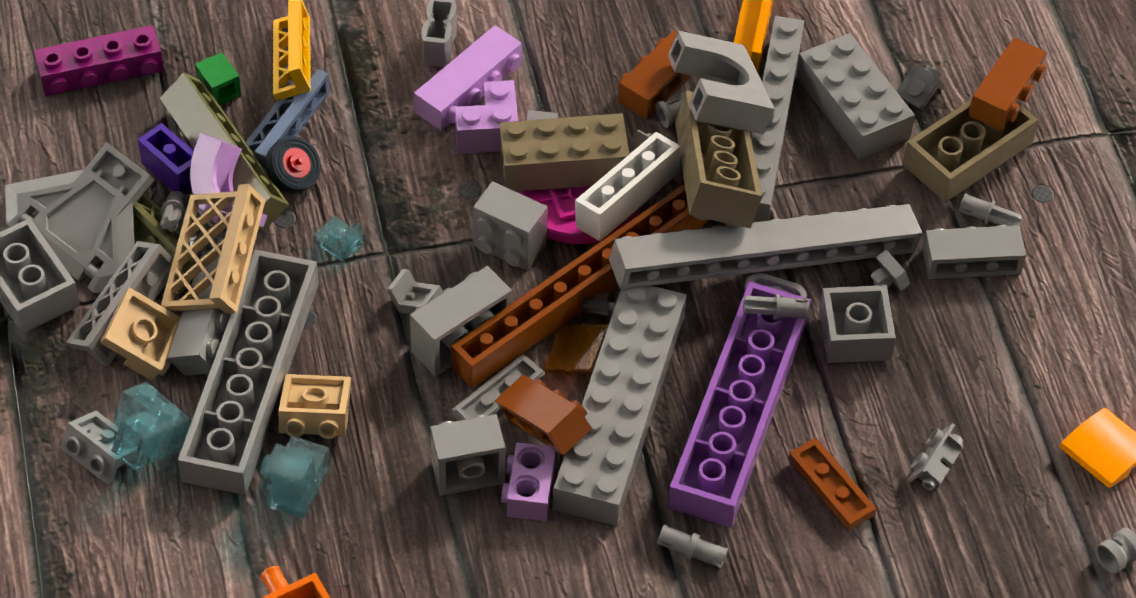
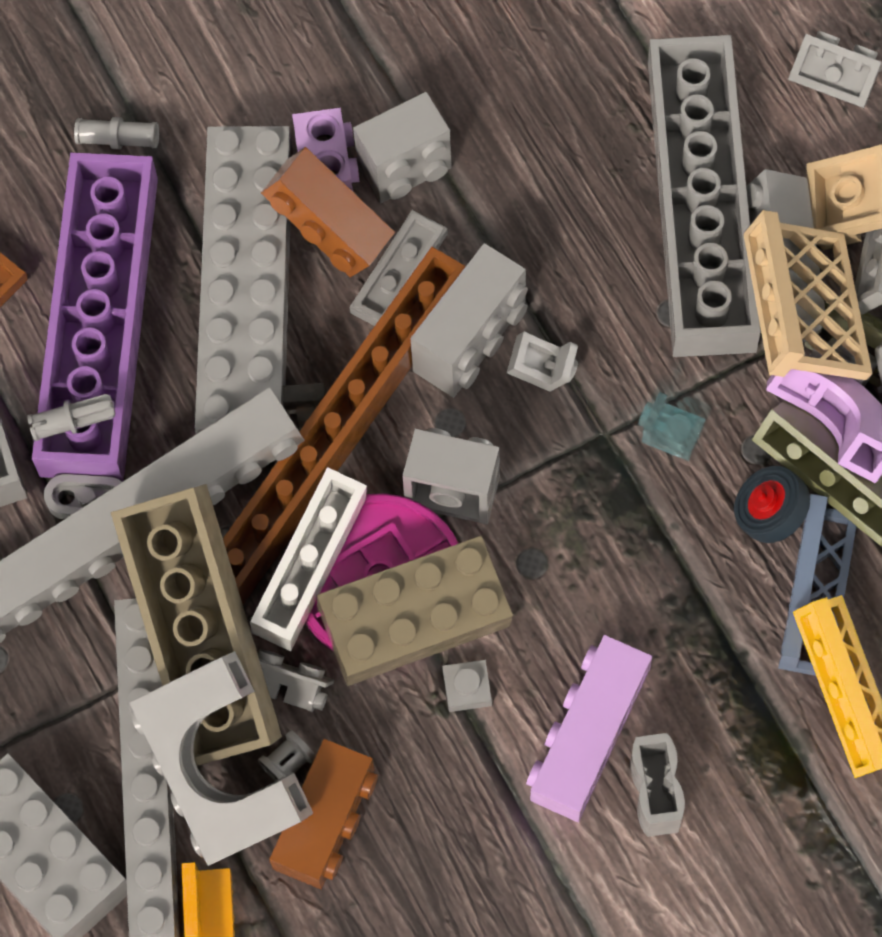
camera: 170 degrees right, 15 degrees up
(147, 426) = (778, 85): clear light blue brick -> none
(294, 475) = (597, 70): clear light blue brick -> none
(314, 405) = (610, 180): tan plate -> none
(479, 126) = (528, 650): lavender brick -> none
(576, 349) = (317, 344): clear orange piece -> none

